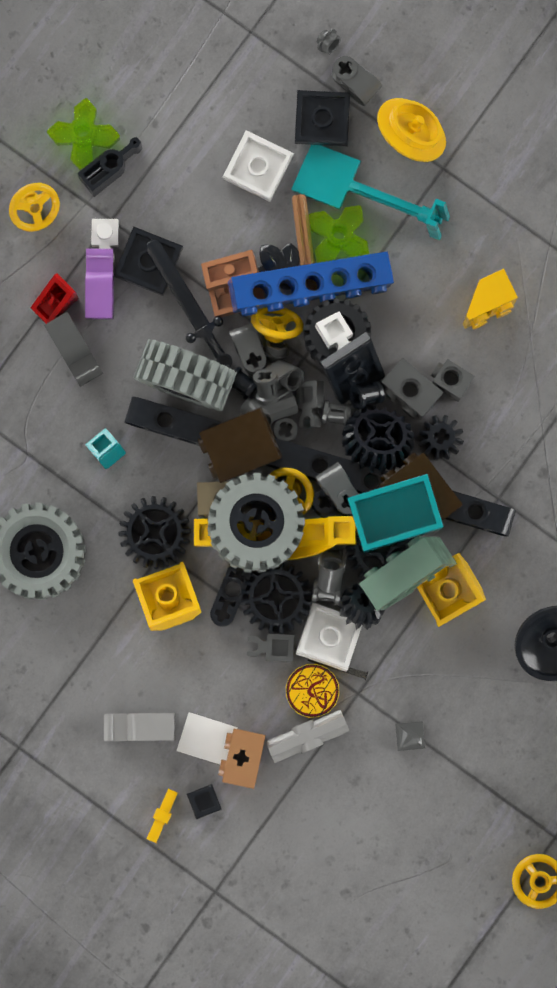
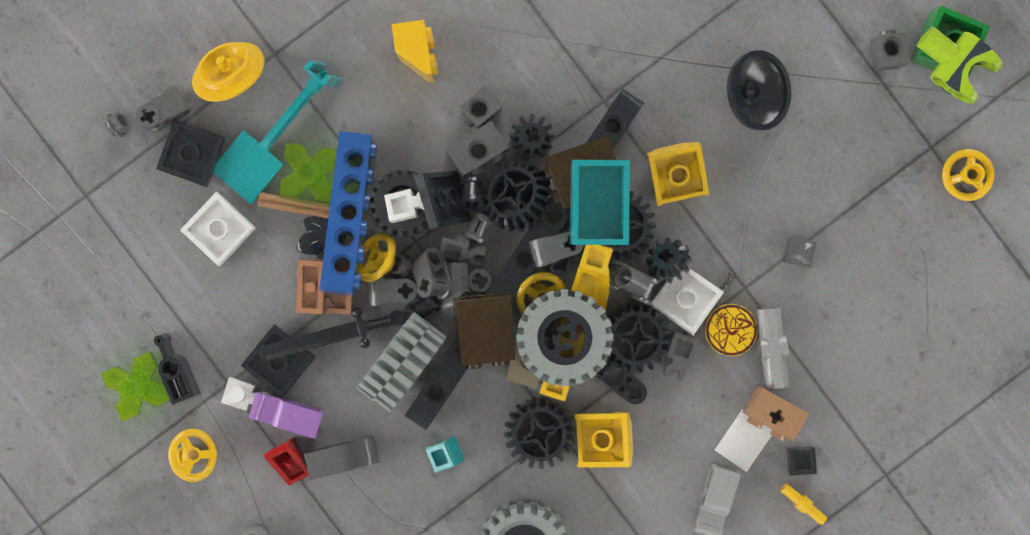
camera: 70 degrees left, 5 degrees up
(406, 571) = (654, 209): sand green wedge -> none

